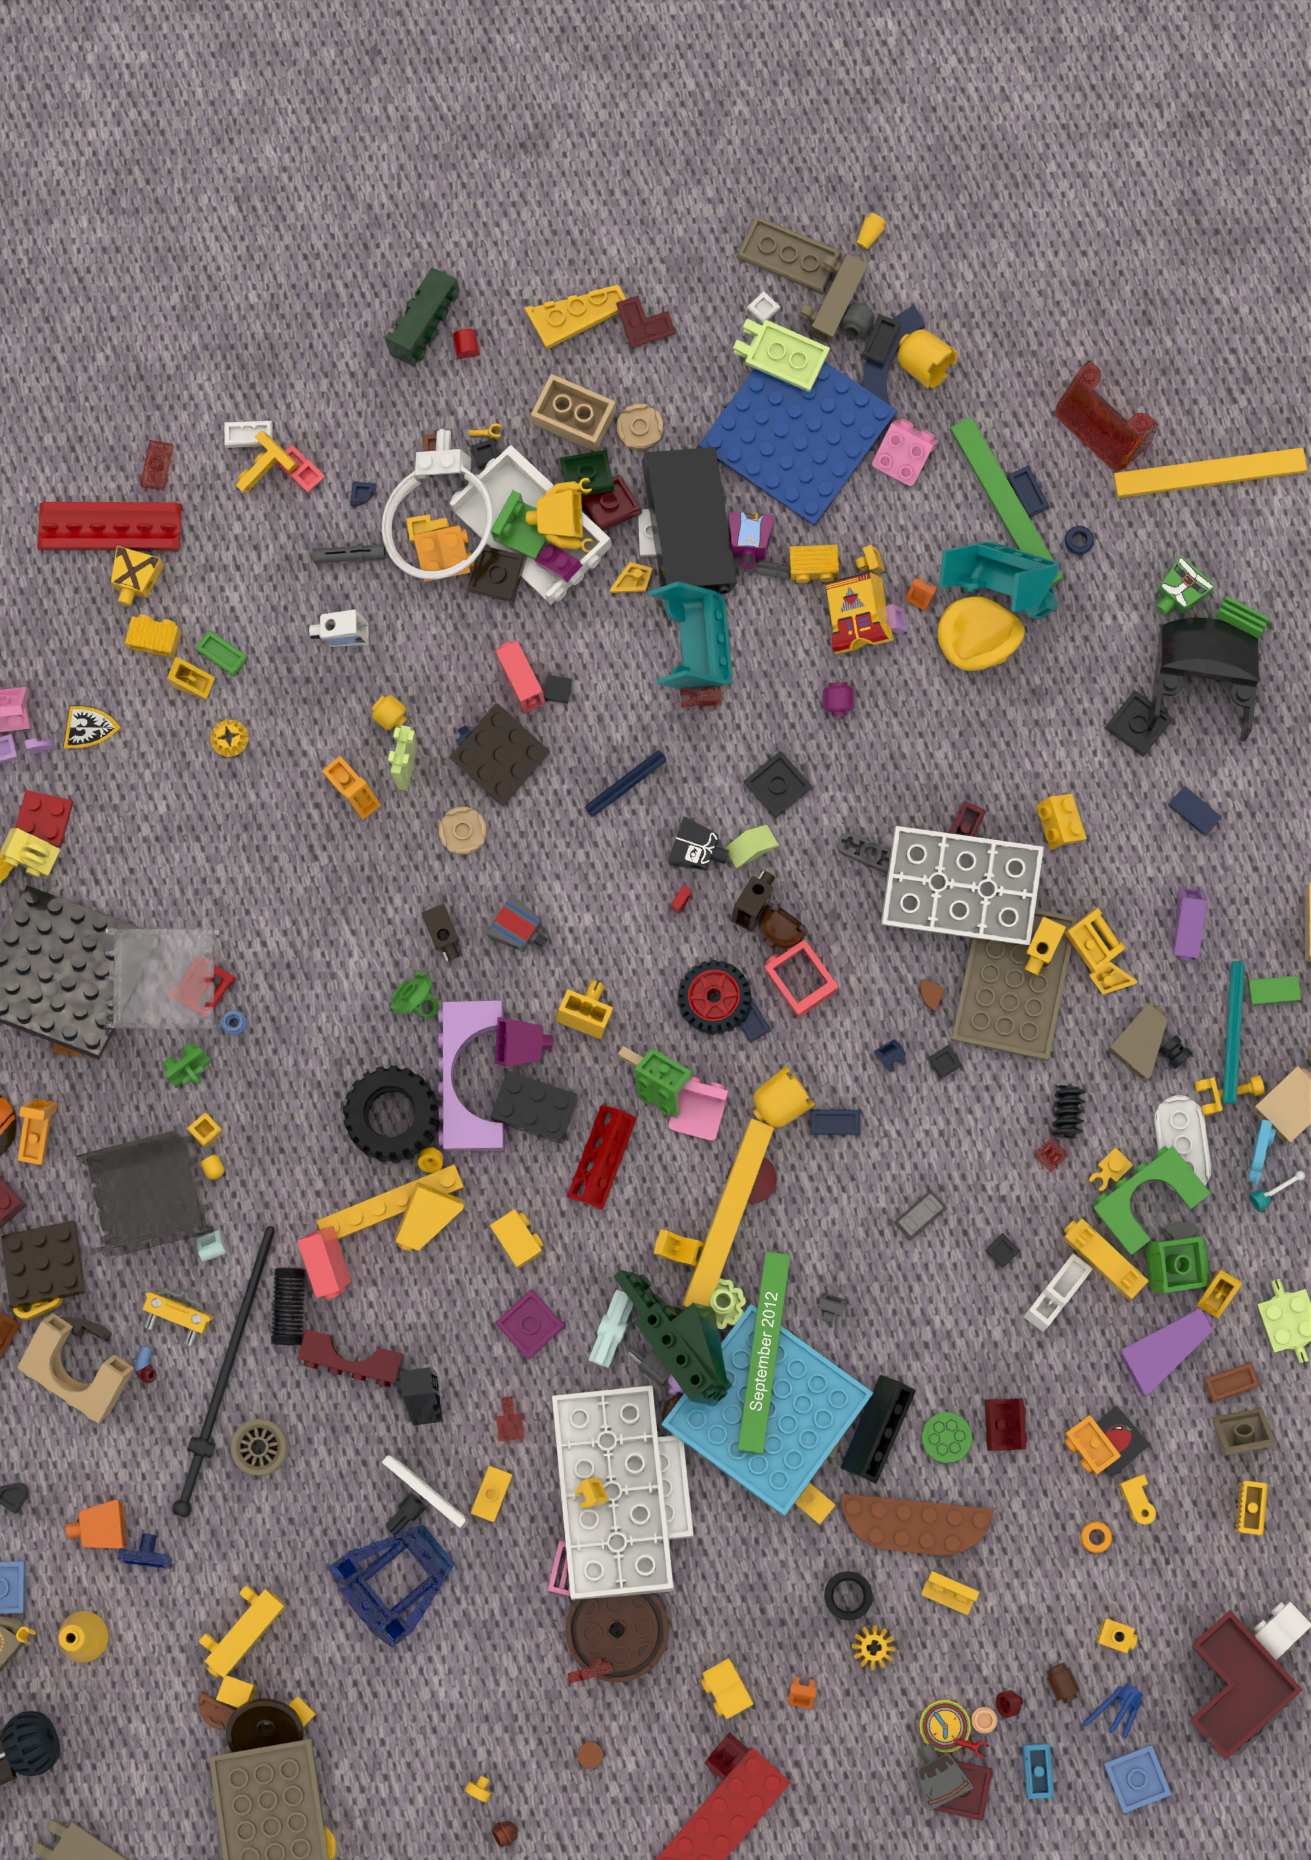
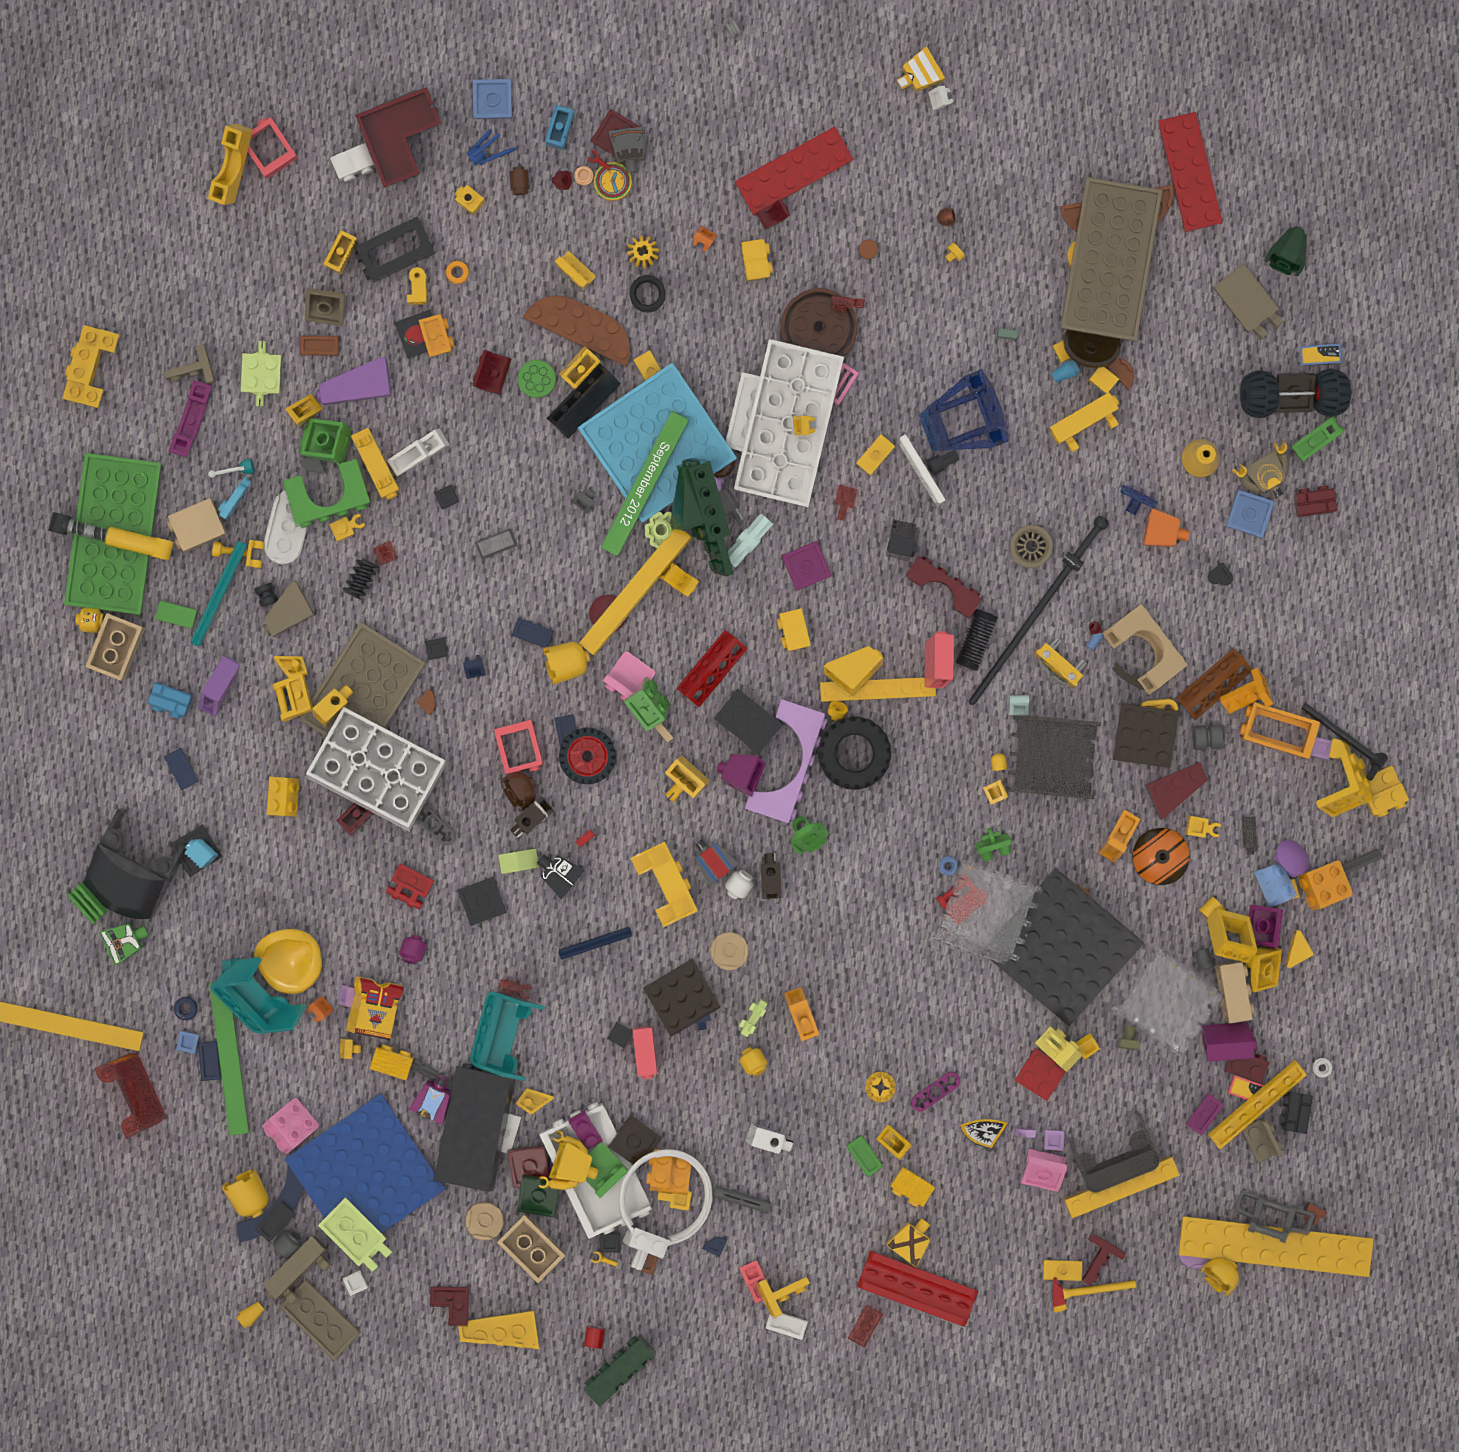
camera: 170 degrees left, 10 degrees up
(177, 744) = (950, 1087): none -> magenta beam
(287, 1687) = (1065, 371): none -> dark azure cone
(377, 1707) = (1007, 334): none -> sand green tile
(477, 910) = (739, 884): none -> white head
(560, 885) = (669, 877): none -> yellow bracket
(866, 777) = (413, 881): none -> red plate
(898, 1469) = (579, 367): none -> yellow brick
(1061, 502) = (187, 1042): none -> medium blue plate
(1133, 716) = (200, 853): none -> medium azure brick
(1147, 1548) = (399, 263): none -> black piece
(1240, 885) = (170, 700): none -> dark azure brick

